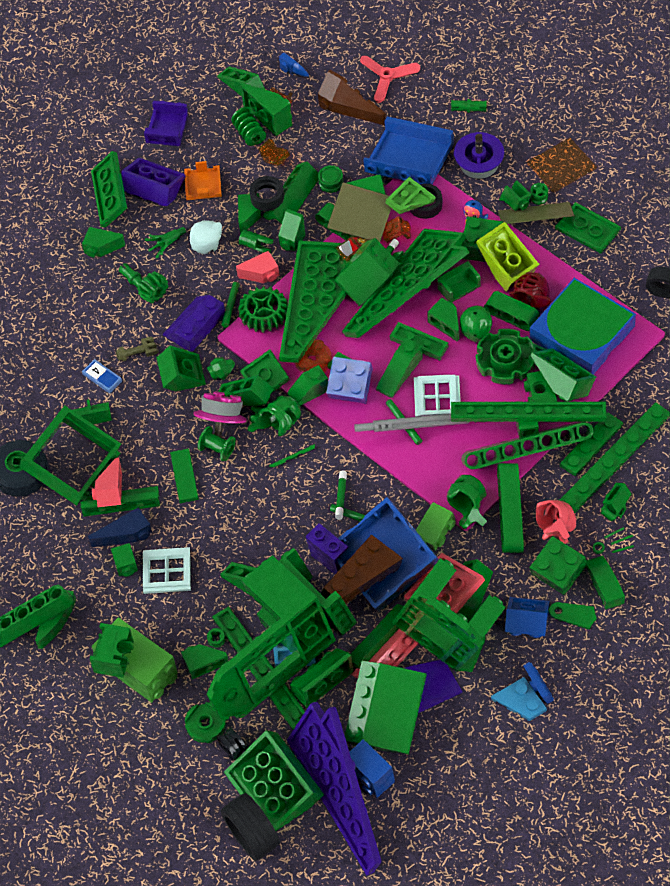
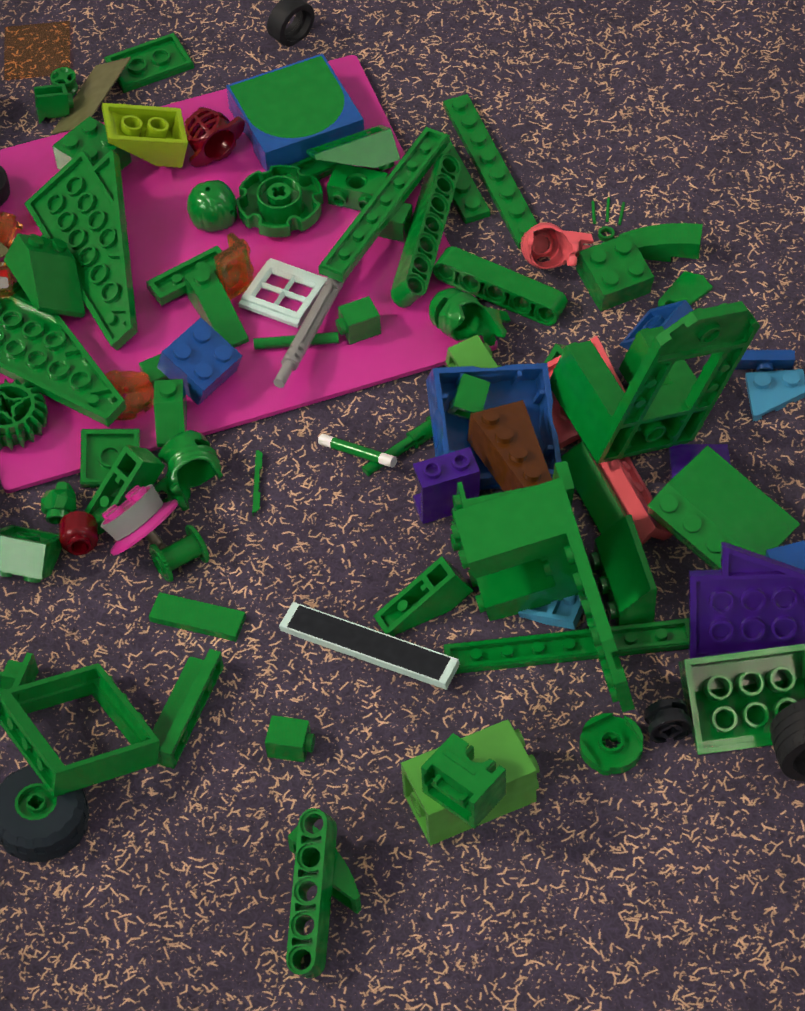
camera: 65 degrees left, 5 degrees down
(109, 485) = (168, 698): coral slope -> none
(124, 530) = (240, 719): dark blue slope -> none
(167, 586) = (361, 708): light aqua piece -> none
(202, 659) = (512, 703): green slope -> none
(203, 385) = (78, 532): none -> dark red head
(207, 569) = (370, 645): none -> black tile
(216, 631) = (489, 673): green bush -> none
(387, 529) = (469, 396): none -> green panel
(430, 360) = (234, 266): none -> clear orange bracket
(434, 445) = (358, 320): none -> green brick
(444, 317) = (180, 234): green slope -> none
(459, 282) = (138, 200): green panel -> none
(474, 209) = (43, 139): animal -> none
(511, 310) = (225, 165): green beam -> none
(615, 501) = (555, 189): green piece -> none

